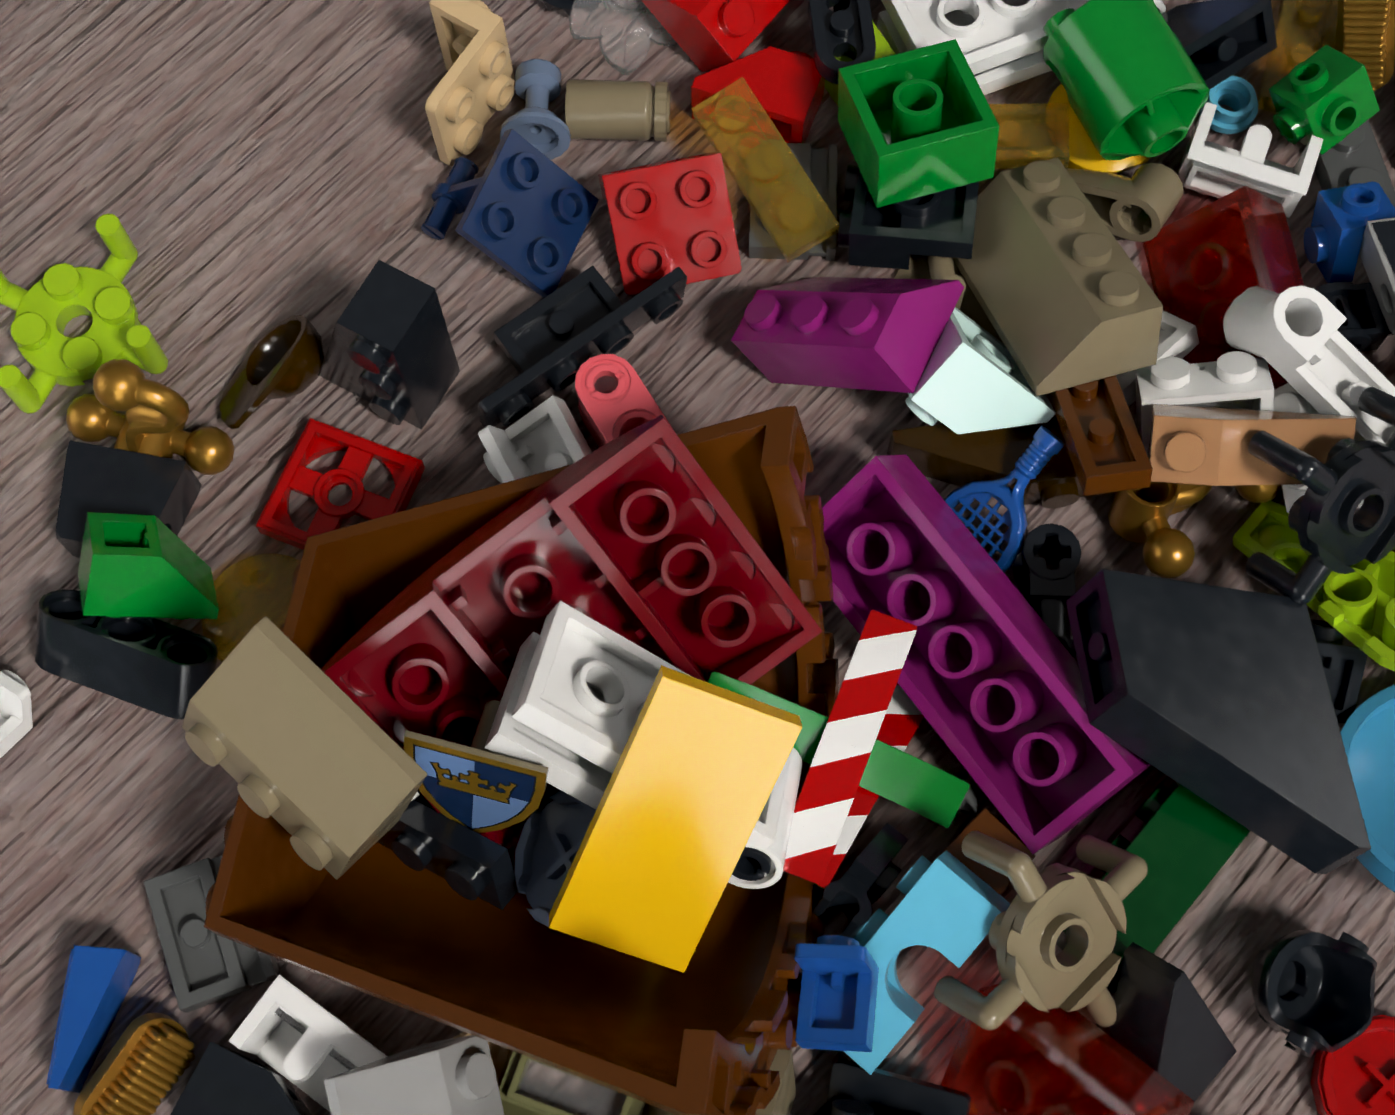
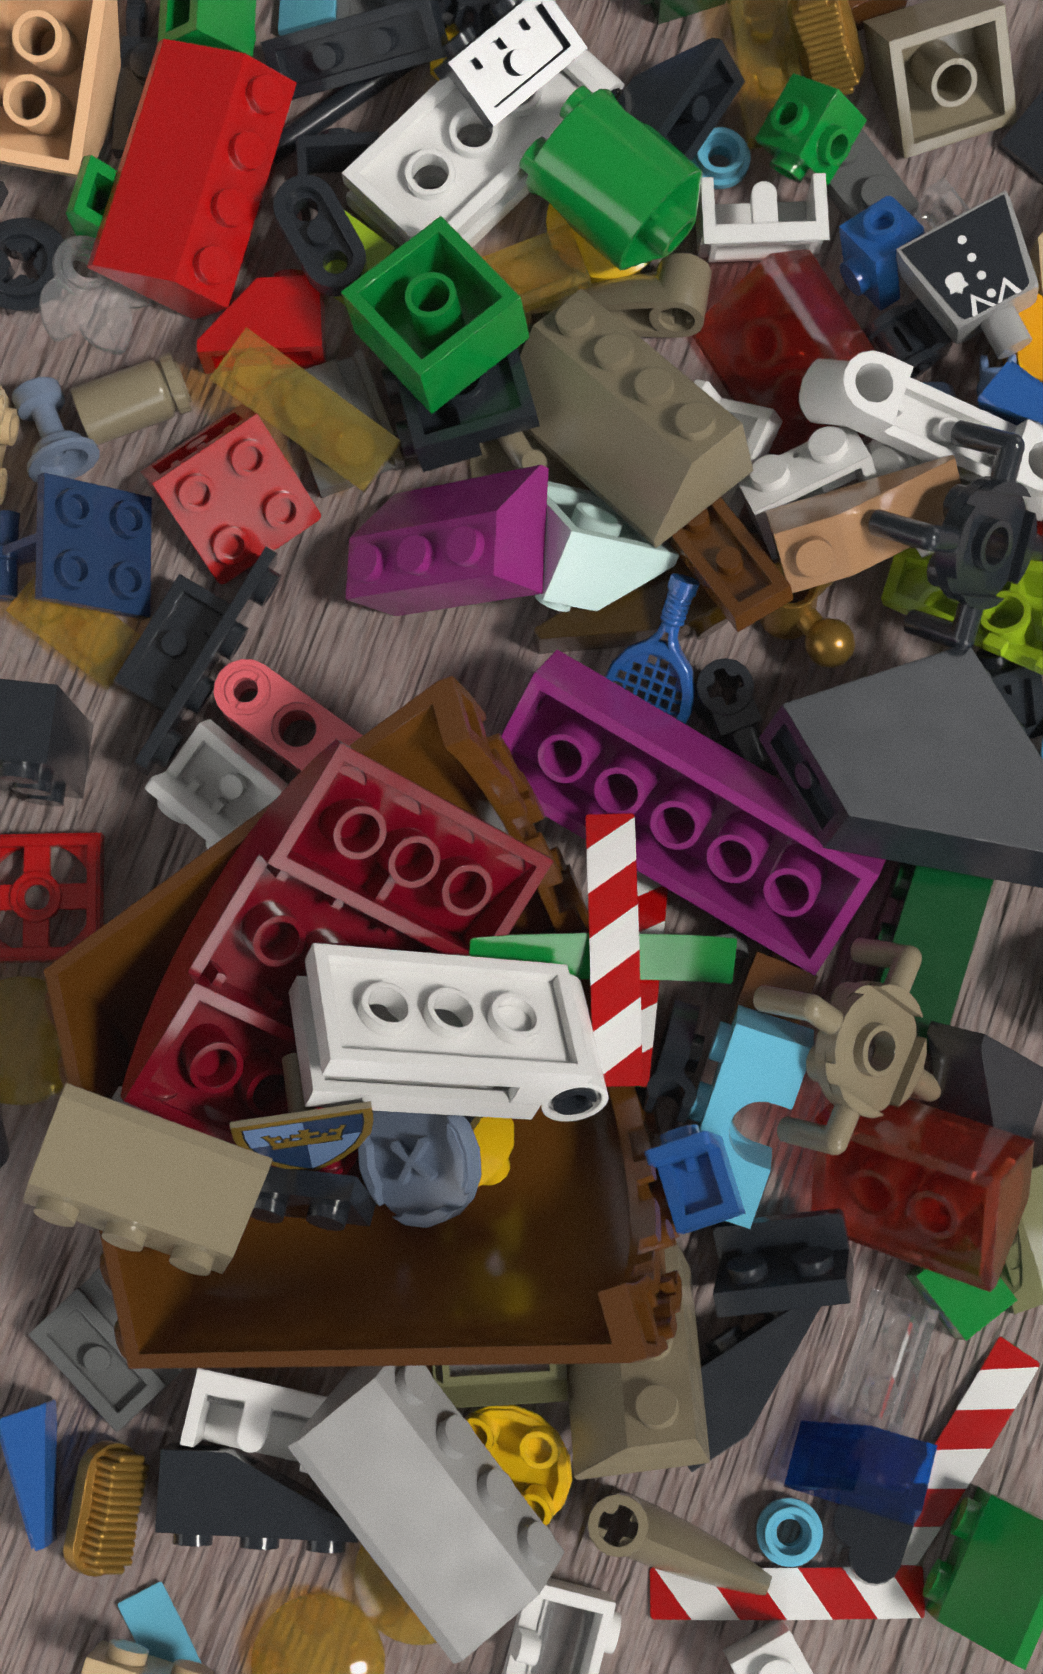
camera: 25 degrees left, 10 degrees up
(482, 285) = (85, 637): none -> clear yellow plate
(674, 819) = (500, 1098): yellow tile -> none

